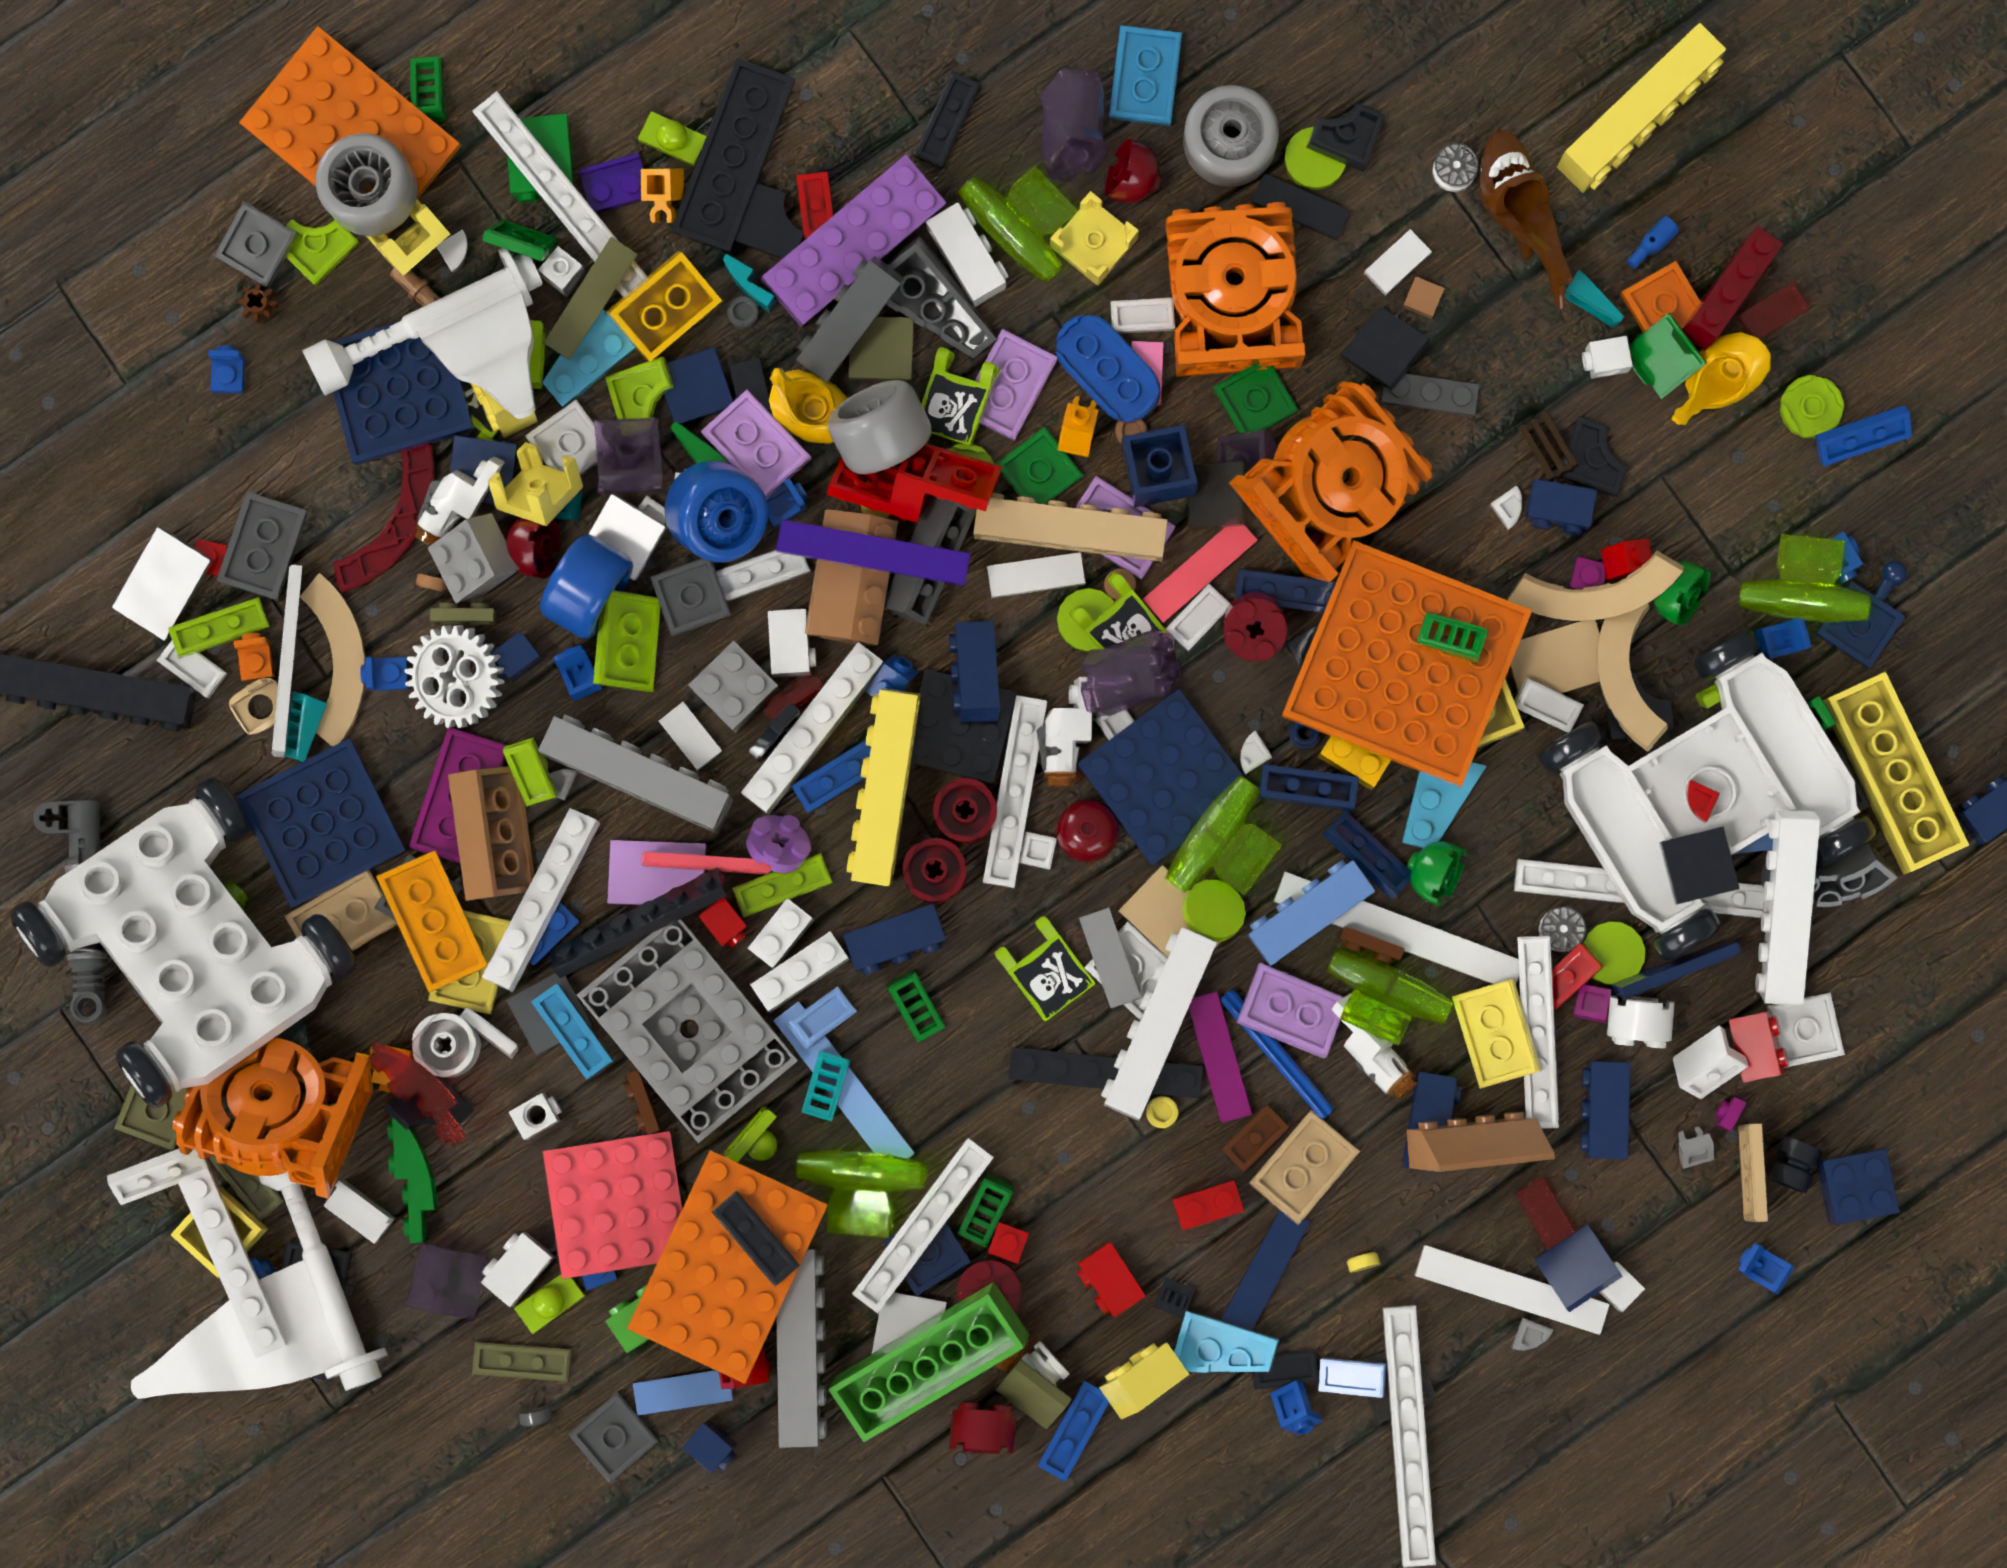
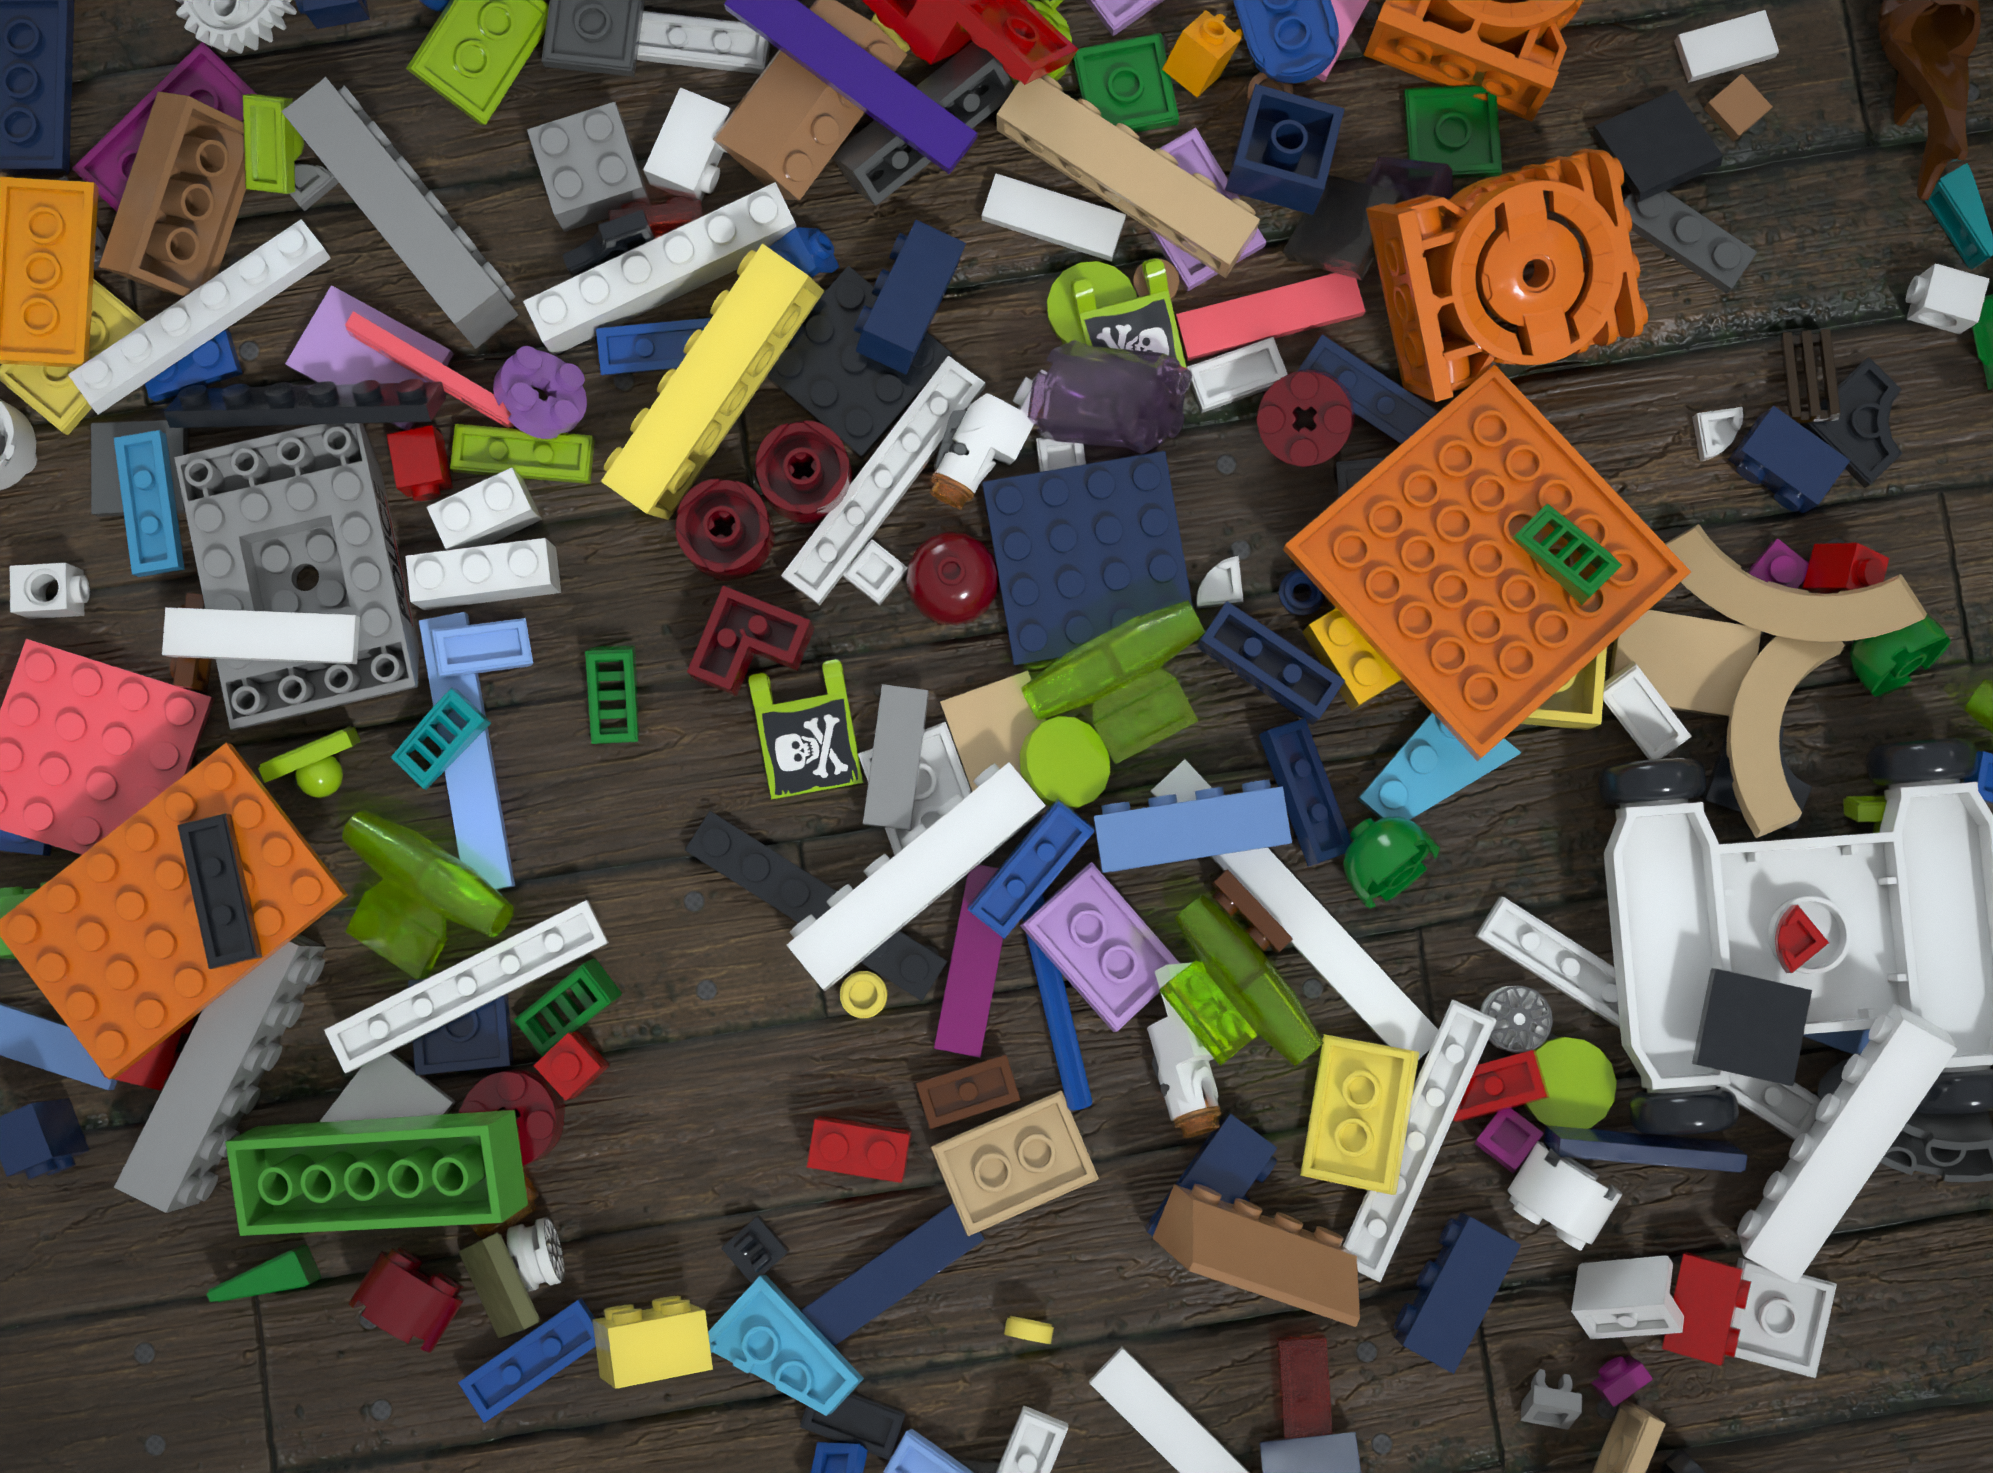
camera: 25 degrees right, 0 degrees up
(490, 1033) = (46, 454): white tile -> none
(577, 672) = (399, 40): blue bracket -> none
(690, 736) = (503, 205): white tile -> none
(691, 1076) = (261, 635): none -> white tile
(895, 939) = (629, 593): dark blue brick -> none
(896, 1455) = (281, 1273): none -> green slope
(978, 924) = (745, 628): none -> dark red brick
(1111, 1280) = (681, 1184): red brick -> none
(1226, 984) = (1030, 868): none -> blue tile

